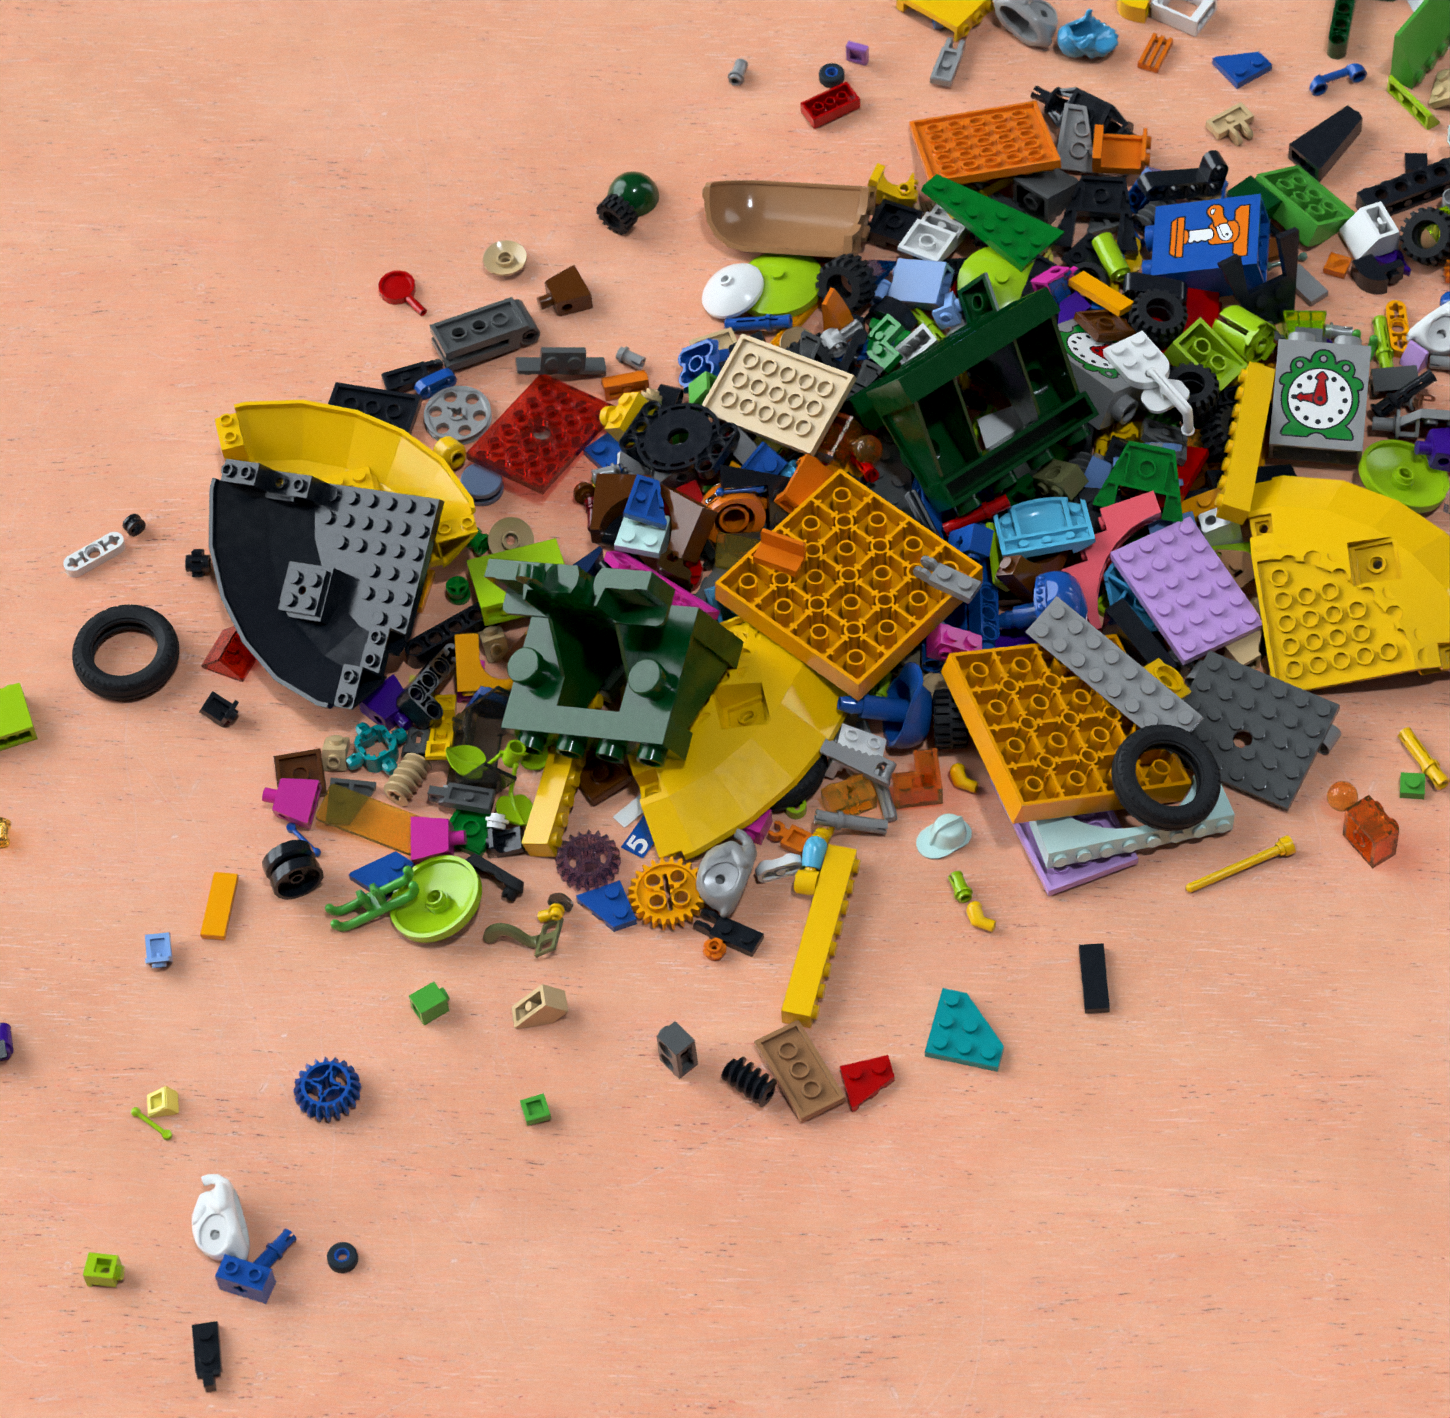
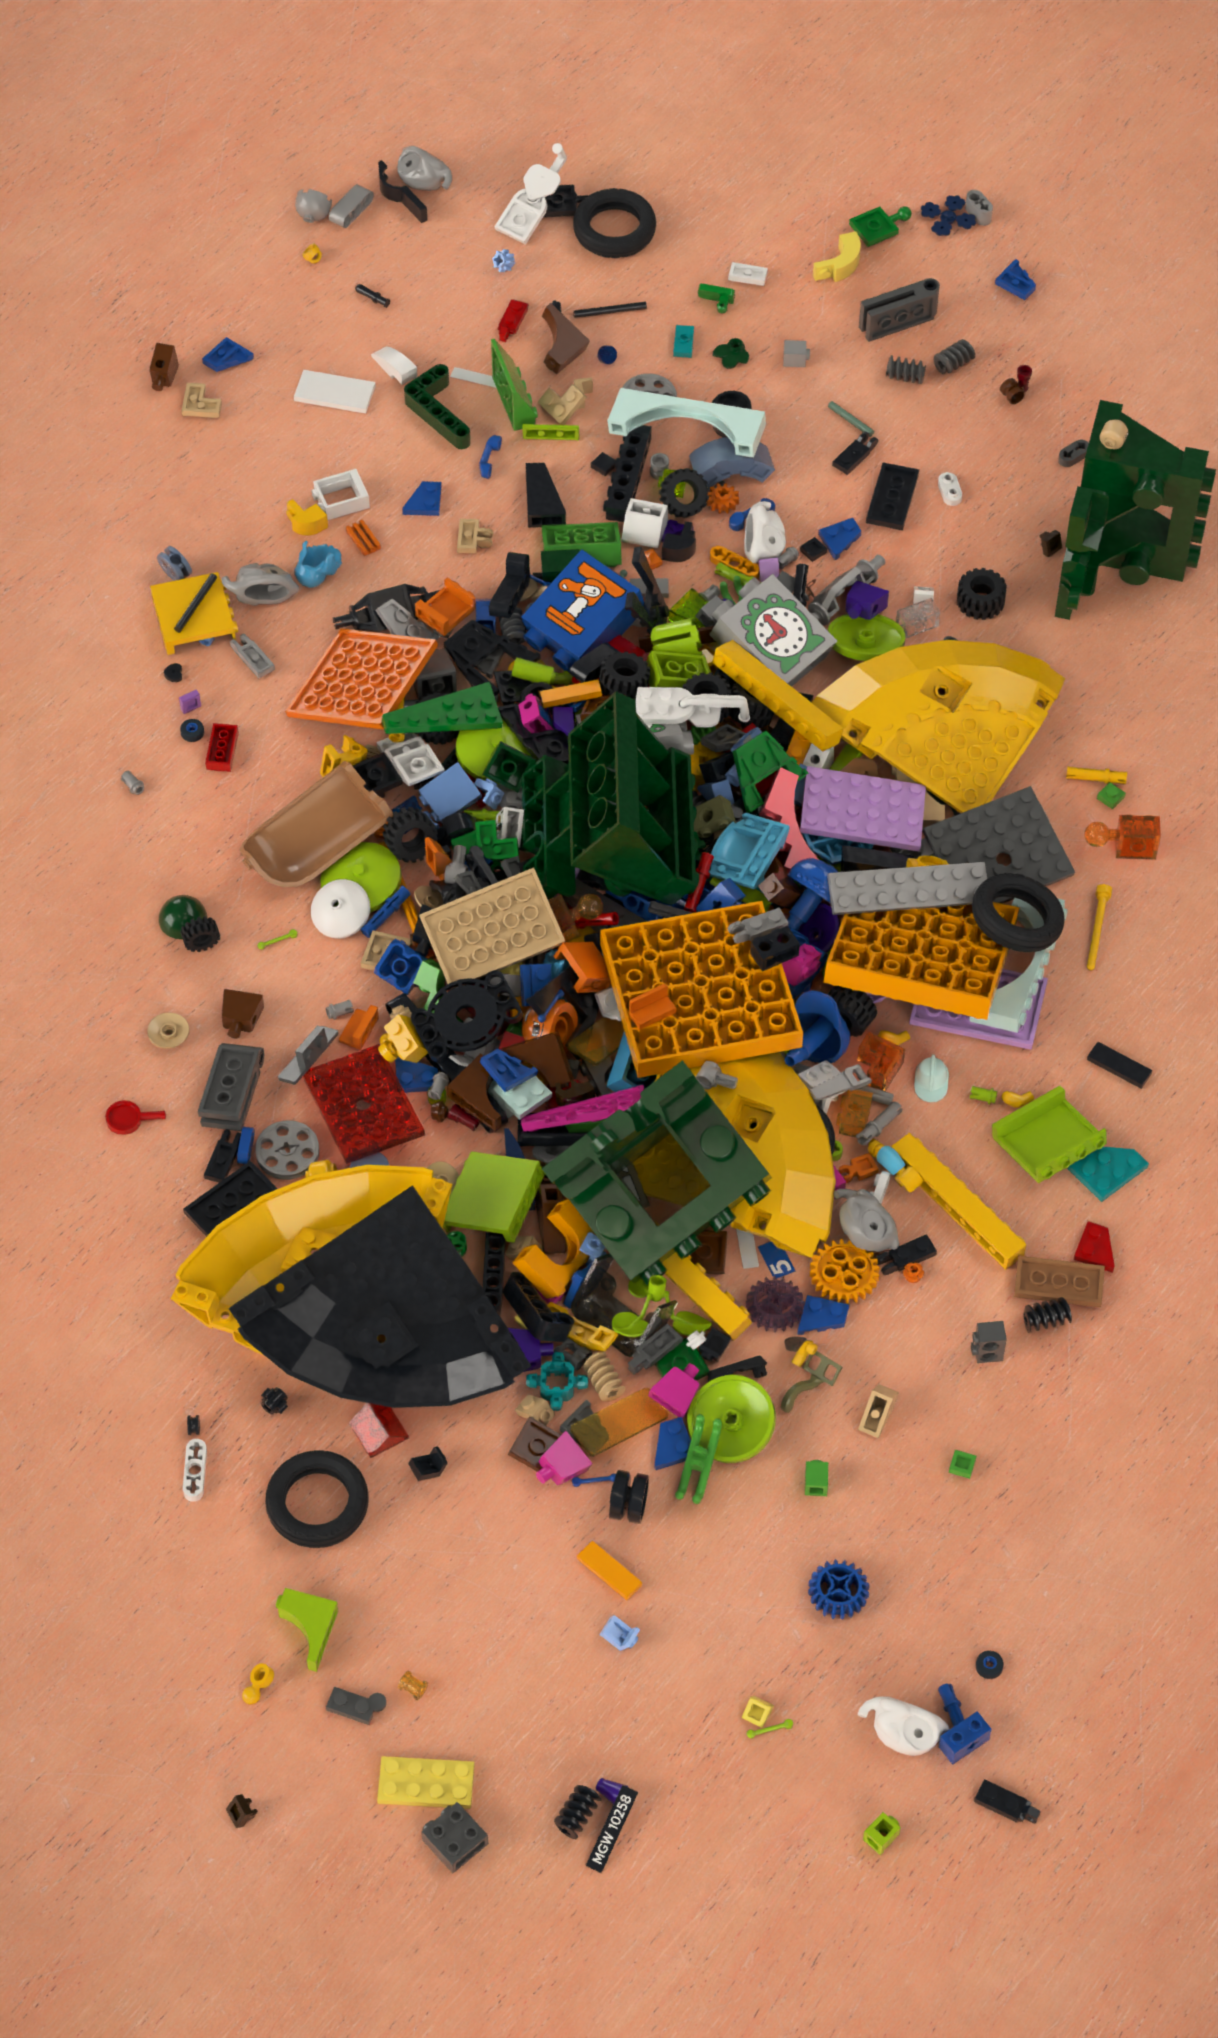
camera: 60 degrees left, 0 degrees up
(683, 278) = (293, 934): none -> lime hinge
(761, 652) = (711, 1075): none -> light grey axle
(881, 24) = (173, 672): none -> black piece
(924, 603) = (774, 948): none -> black brick
(954, 963) = (1047, 1135): none -> lime panel

